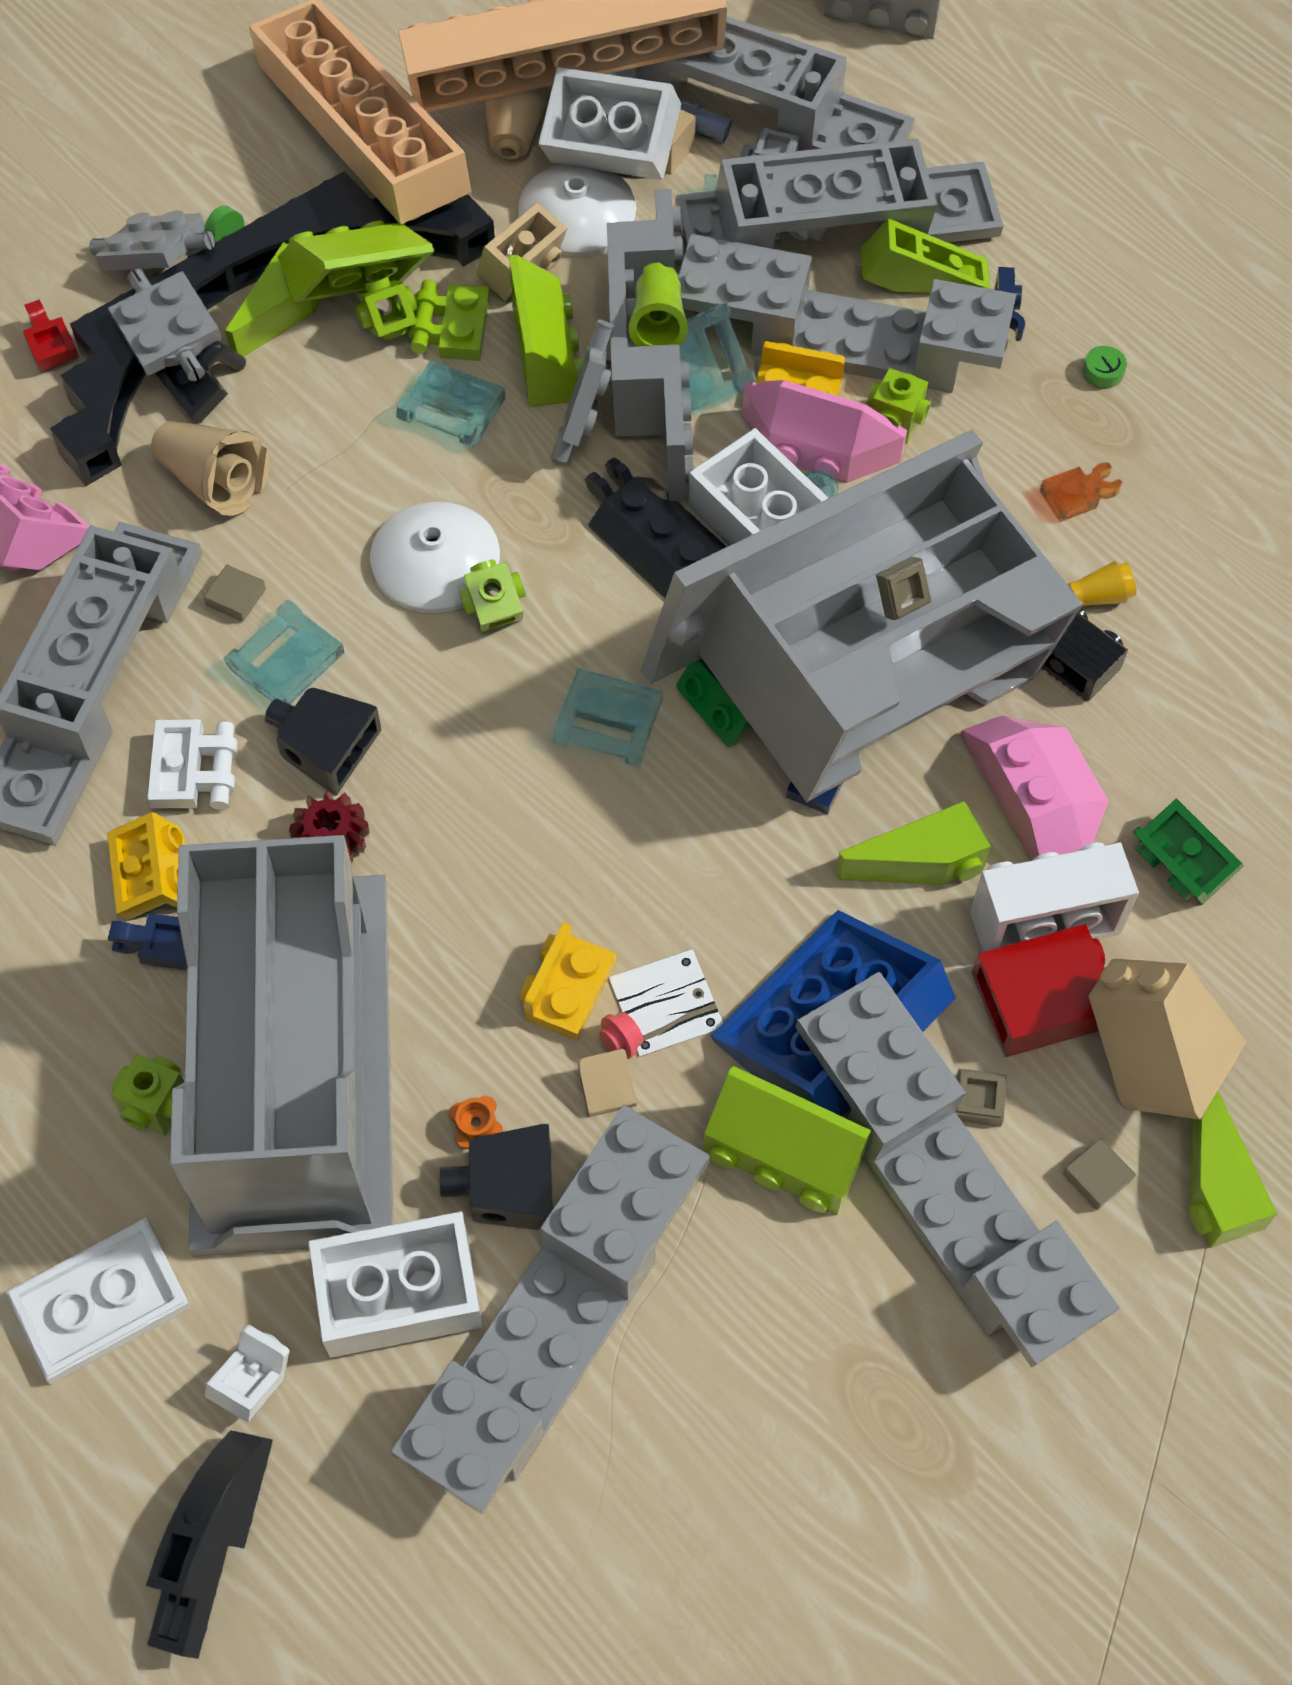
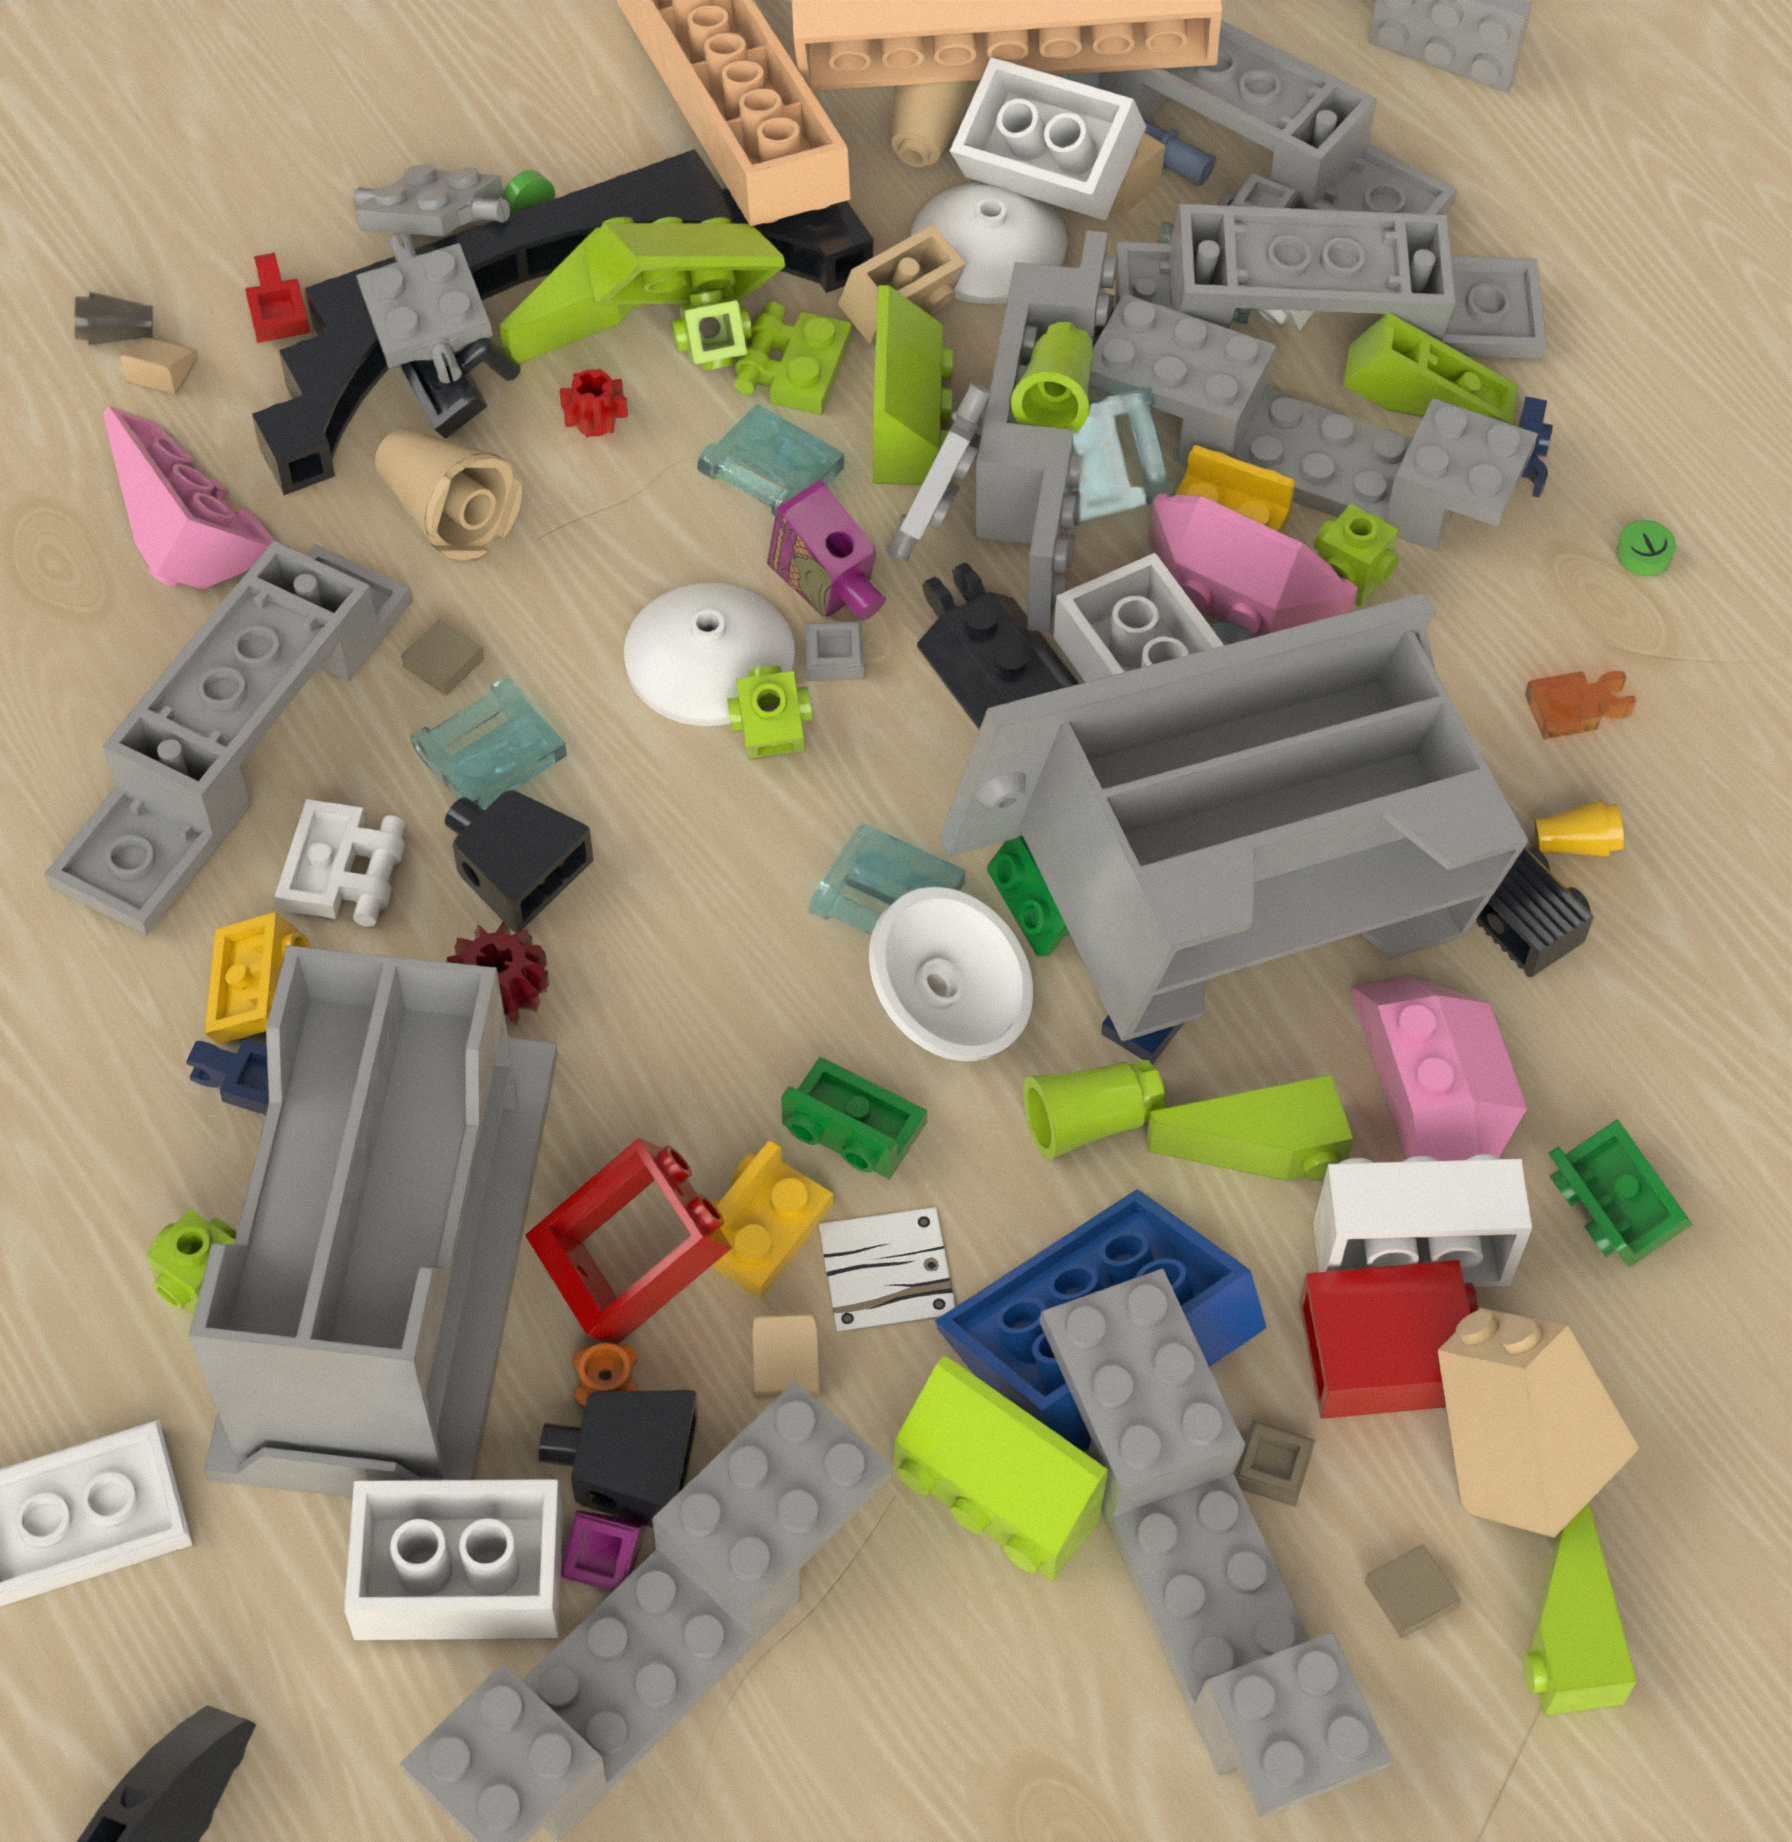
camera: 10 degrees right, 5 degrees down
(249, 1374) = (246, 1639): white bracket -> none
(308, 378) = (593, 402): none -> red gear
(440, 1051) = (576, 1275): none -> red window
(501, 1254) = (602, 1549): none -> magenta slope
(508, 467) = (824, 554): none -> magenta torso
(528, 540) = (834, 651): none -> light grey tile
(618, 893) = (852, 1118): none -> green bracket
(620, 1033) = (816, 1295): coral plate -> none
(670, 772) = (969, 961): none -> white dish
(791, 853) = (1090, 1105): none -> lime plant
(903, 588) = (1292, 781): dark tan tile -> none

